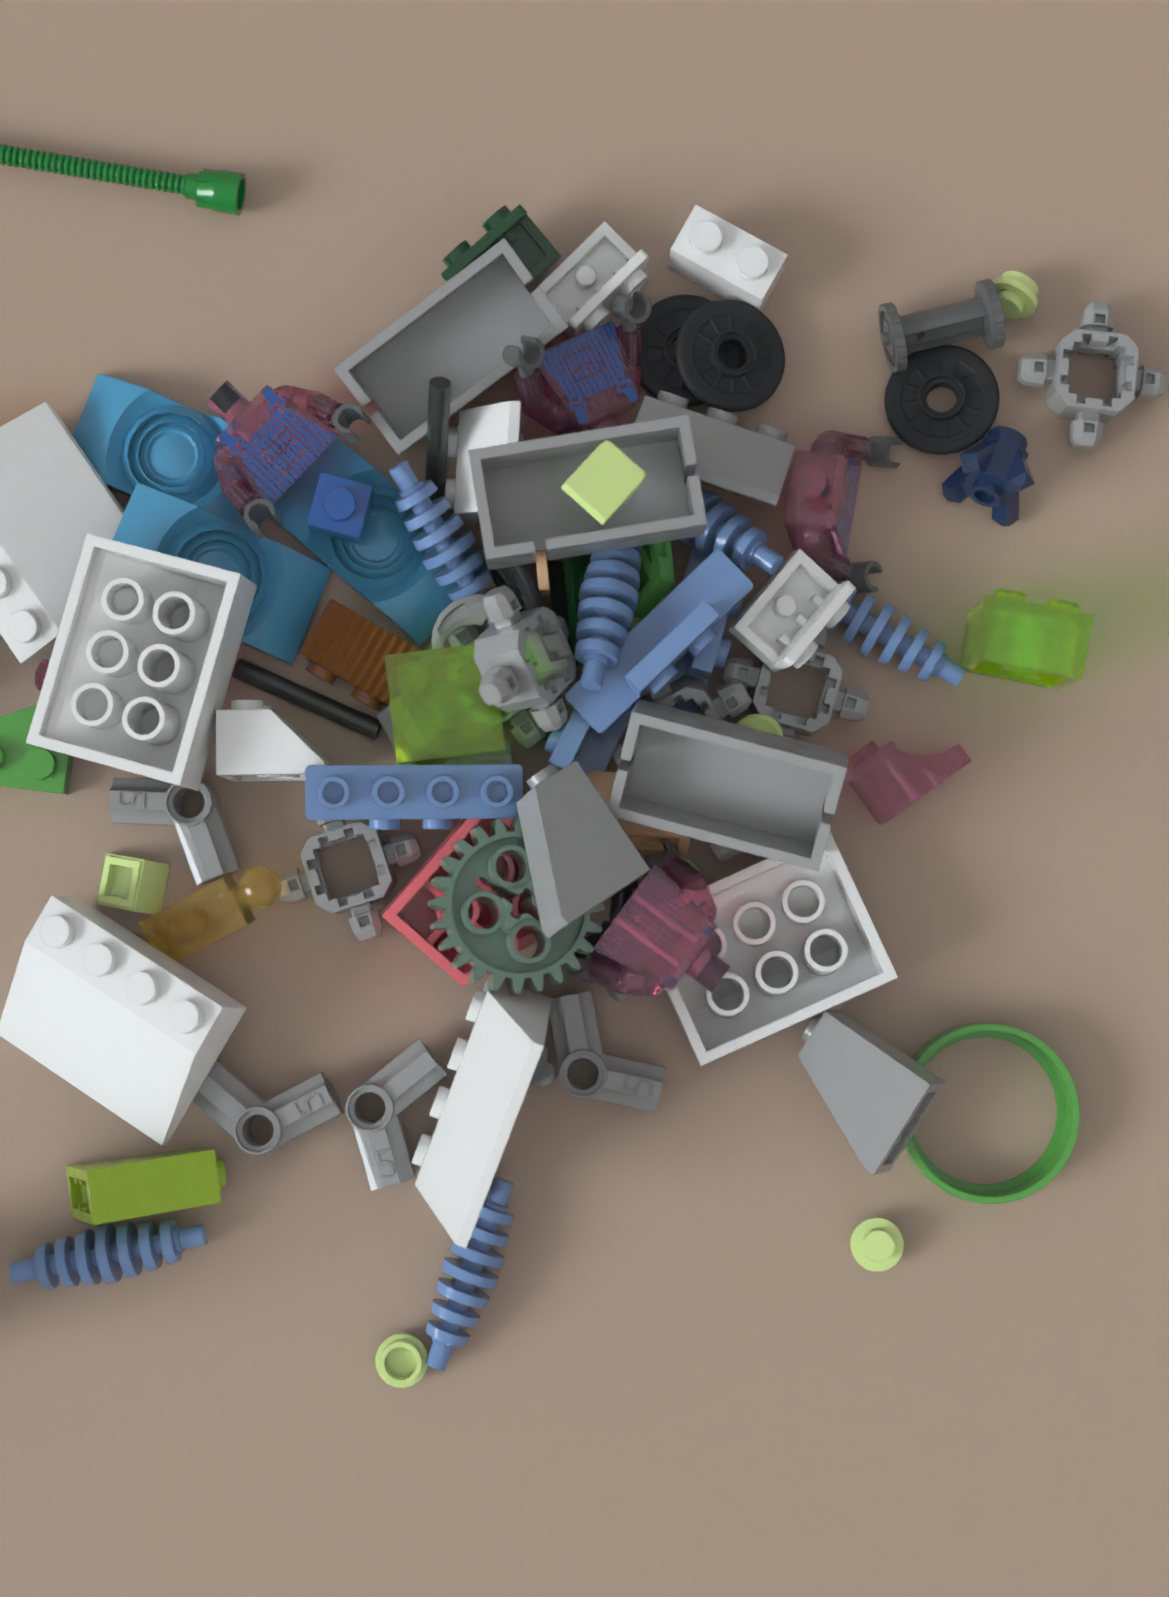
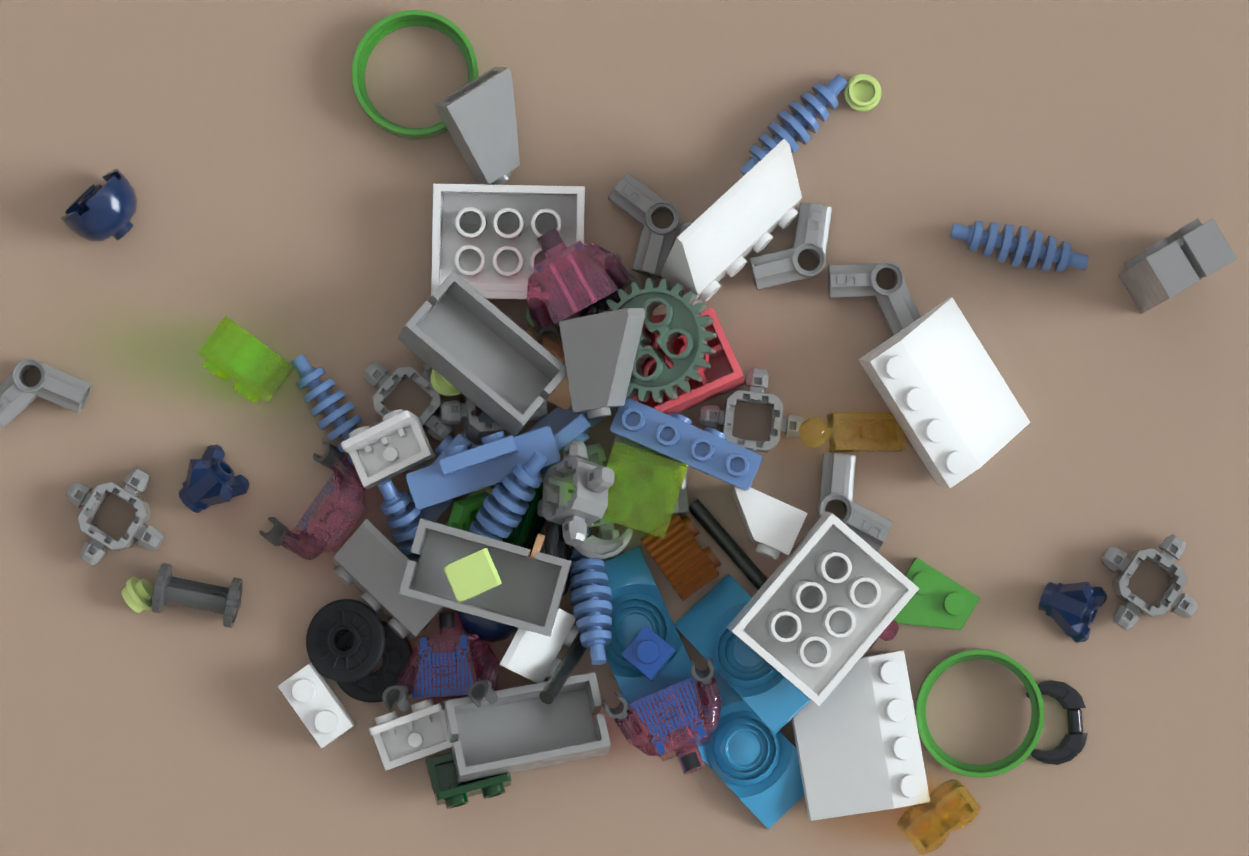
camera: 160 degrees left, 0 degrees up
(133, 884) = (898, 478): yellowish green slope -> none
(144, 1185) = (977, 279): lime slope -> none
(876, 1244) = (525, 24): yellowish green plate -> none
(894, 779) = (372, 311): clear pink arch -> none
(942, 431) = (213, 524): black wheel -> none

